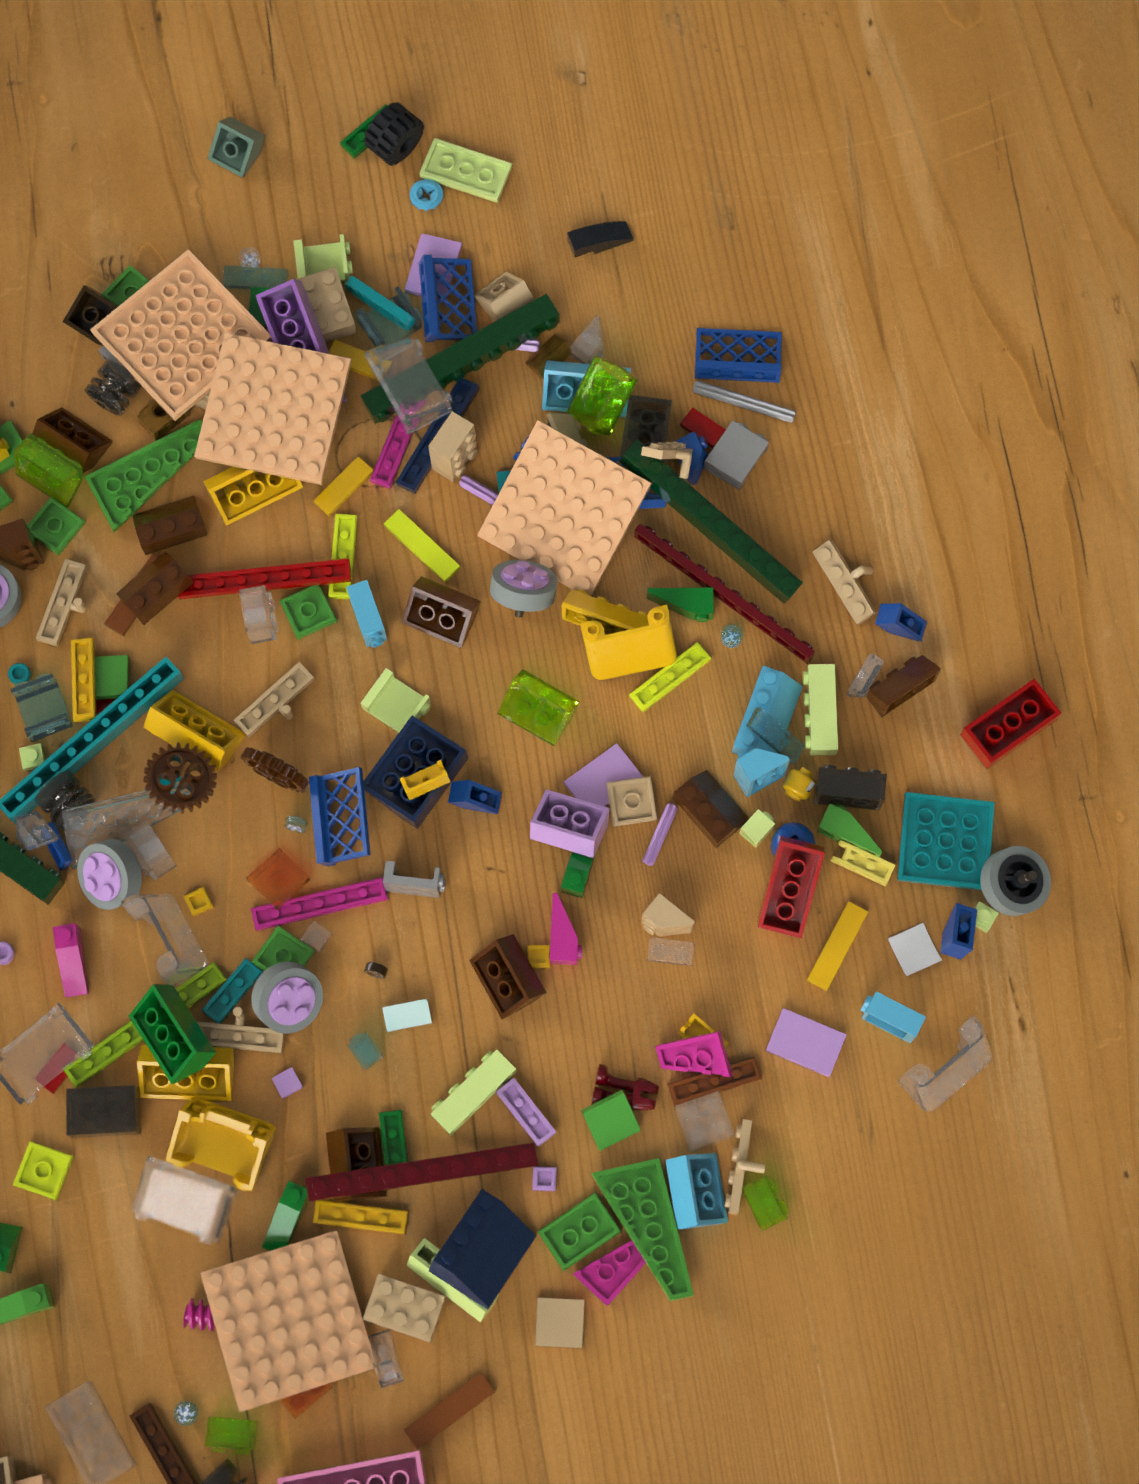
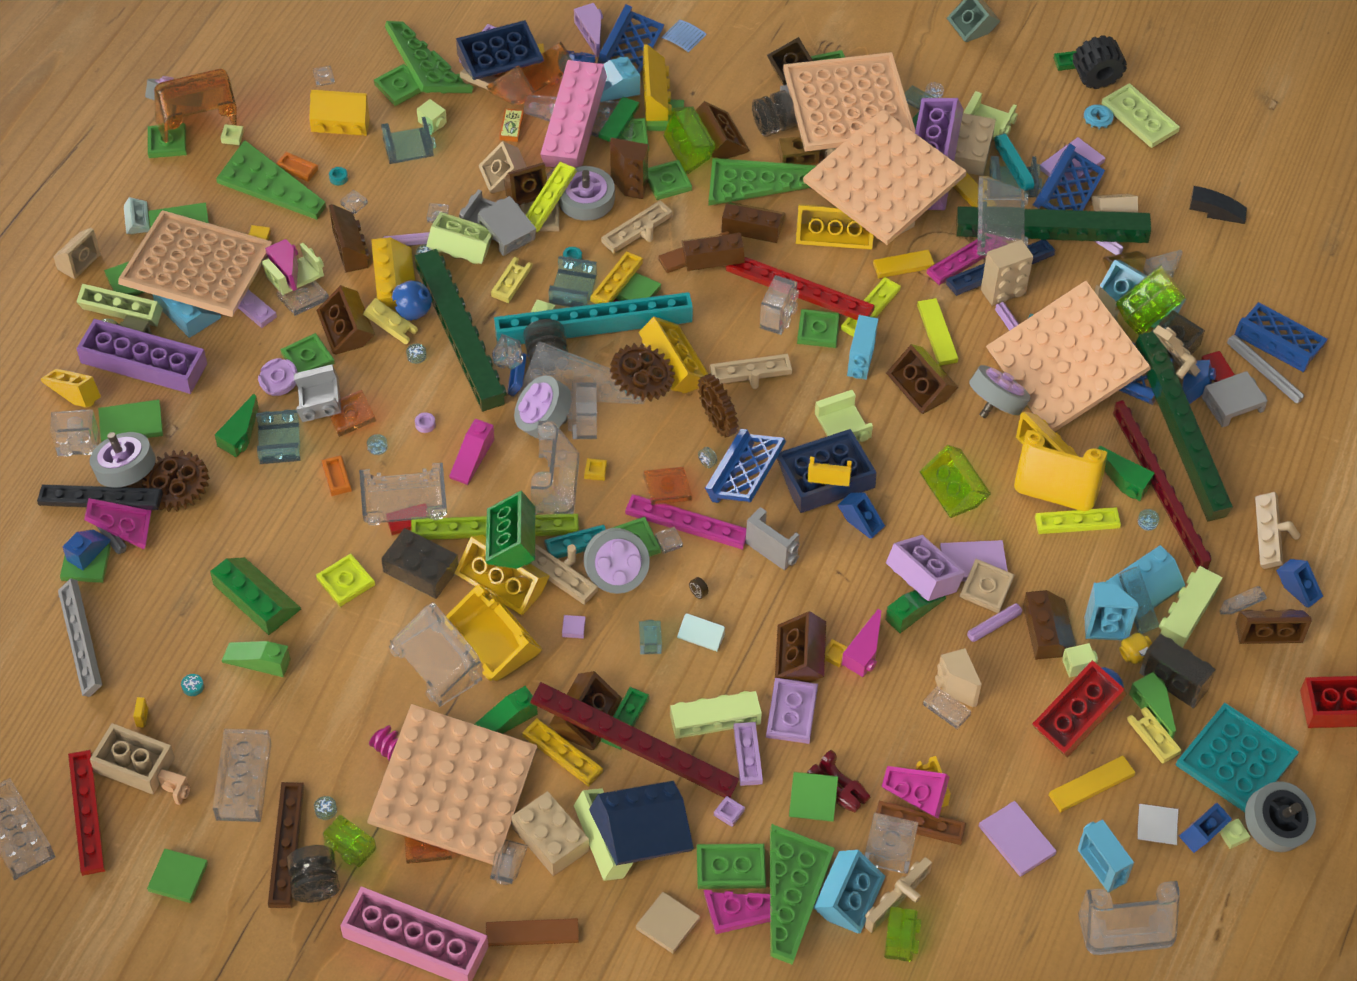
camera: 30 degrees right, 20 degrees down
(536, 1041) = (792, 710): none -> lavender tile

